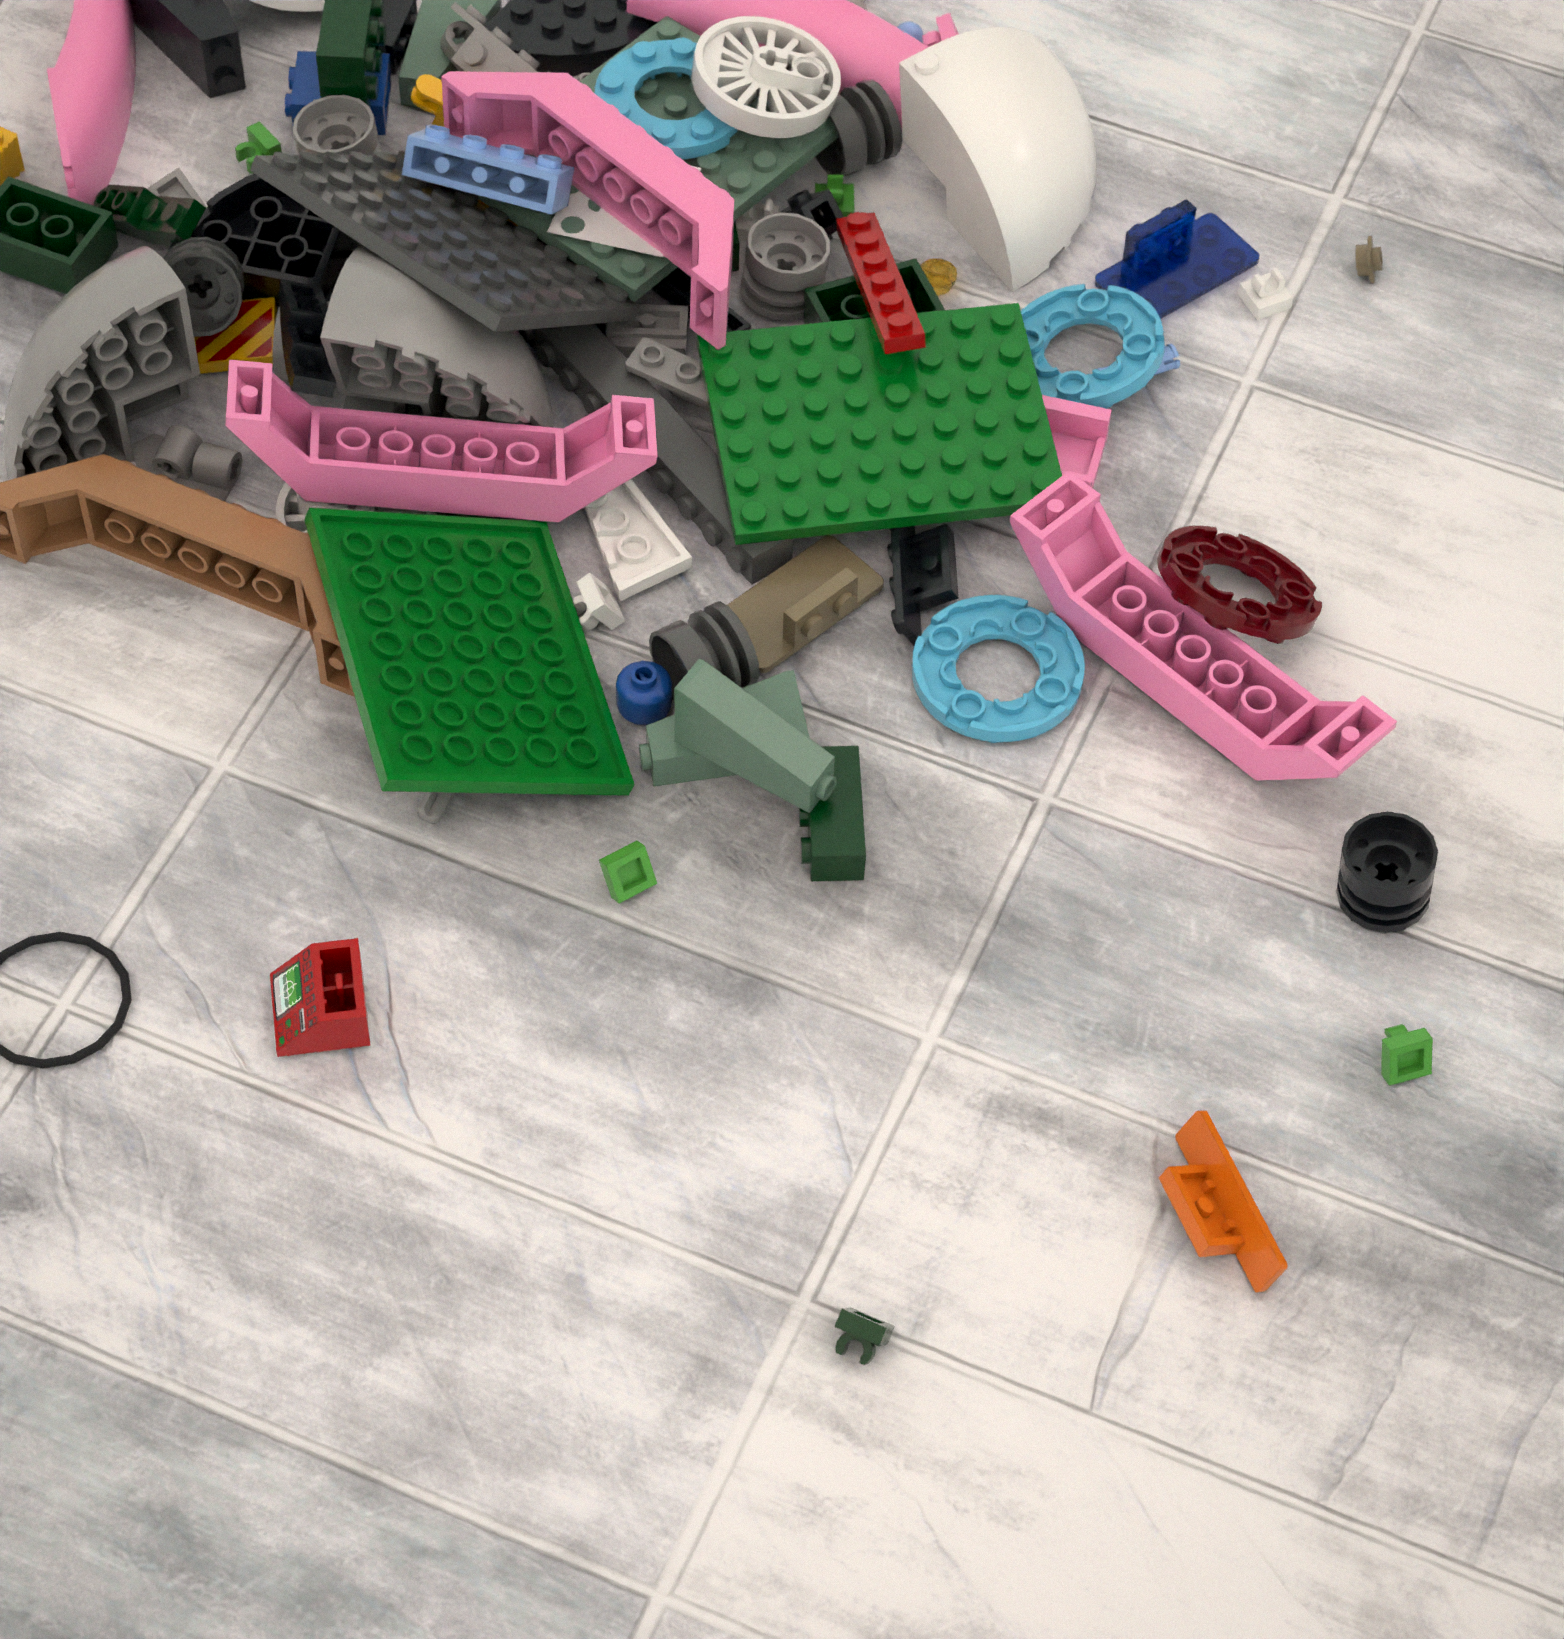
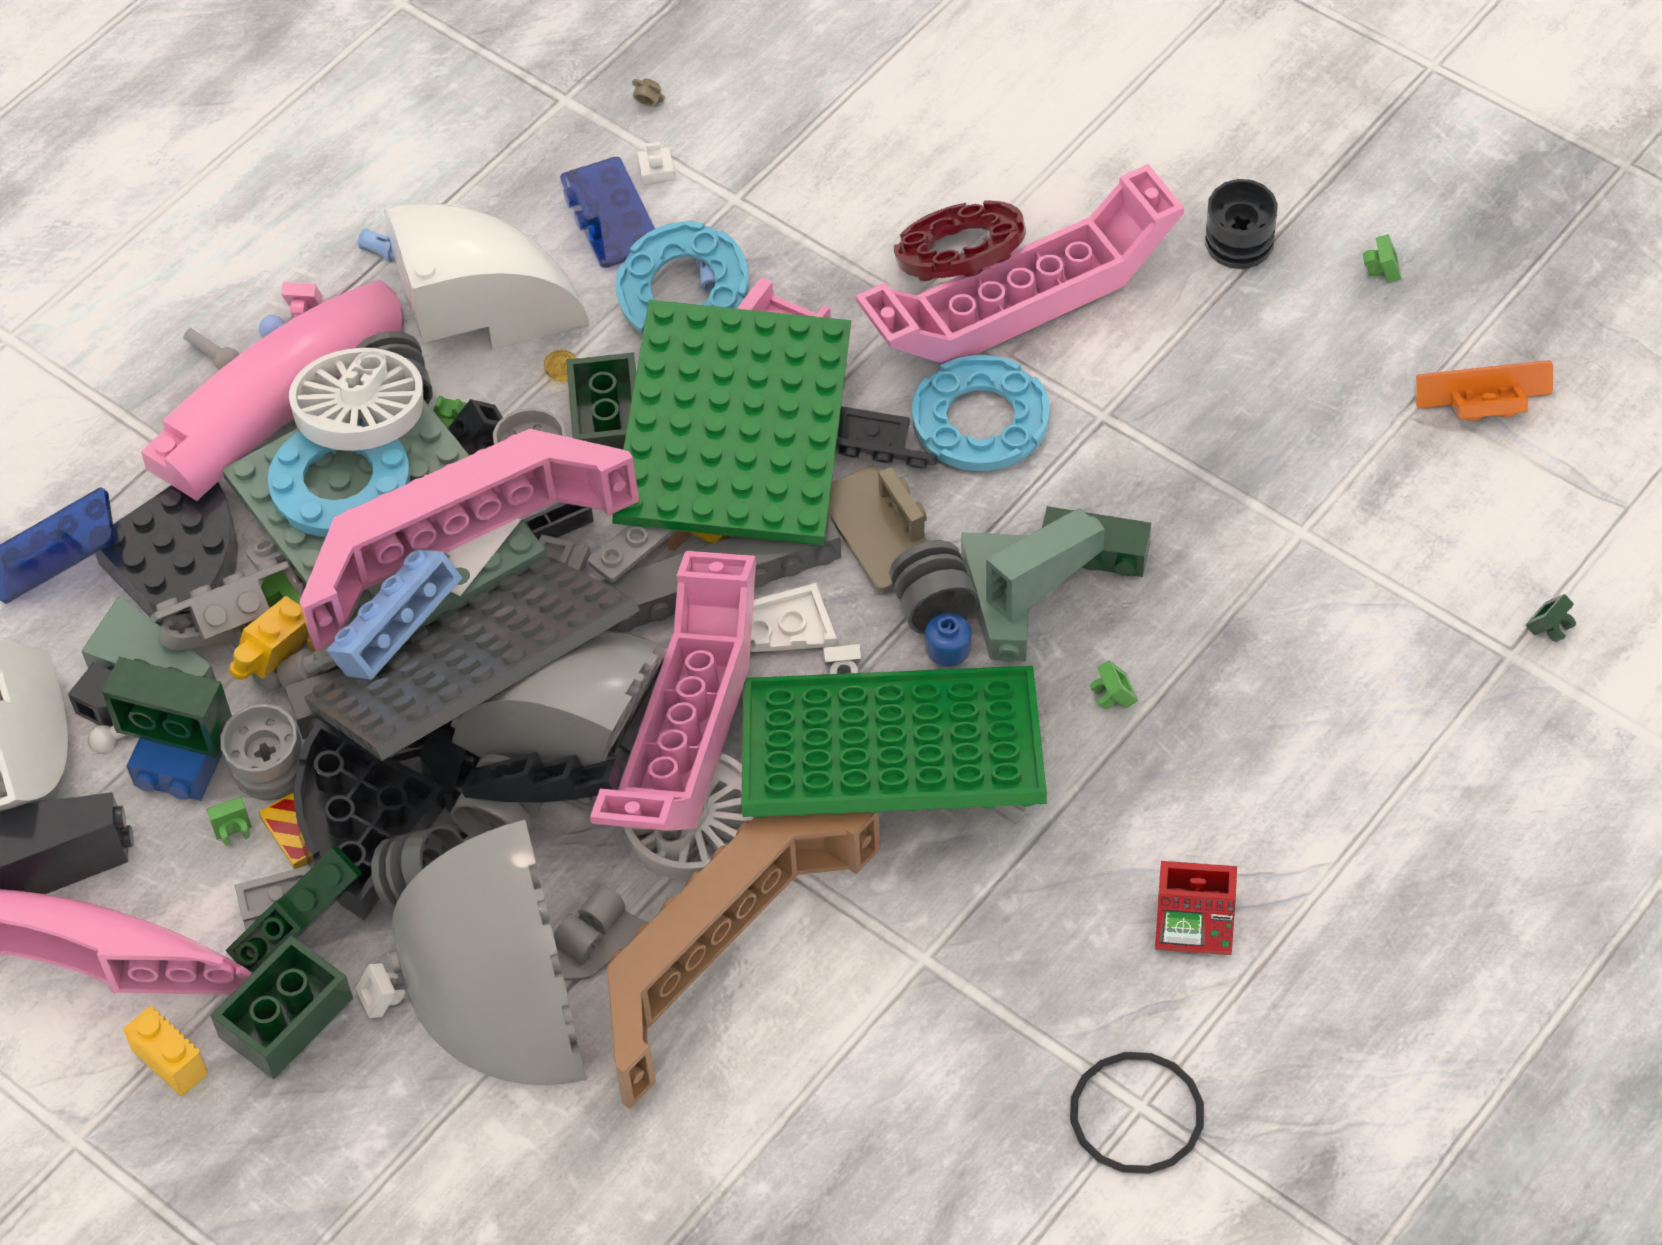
camera: 70 degrees left, 0 degrees up
(880, 283) = (597, 382): red plate -> none

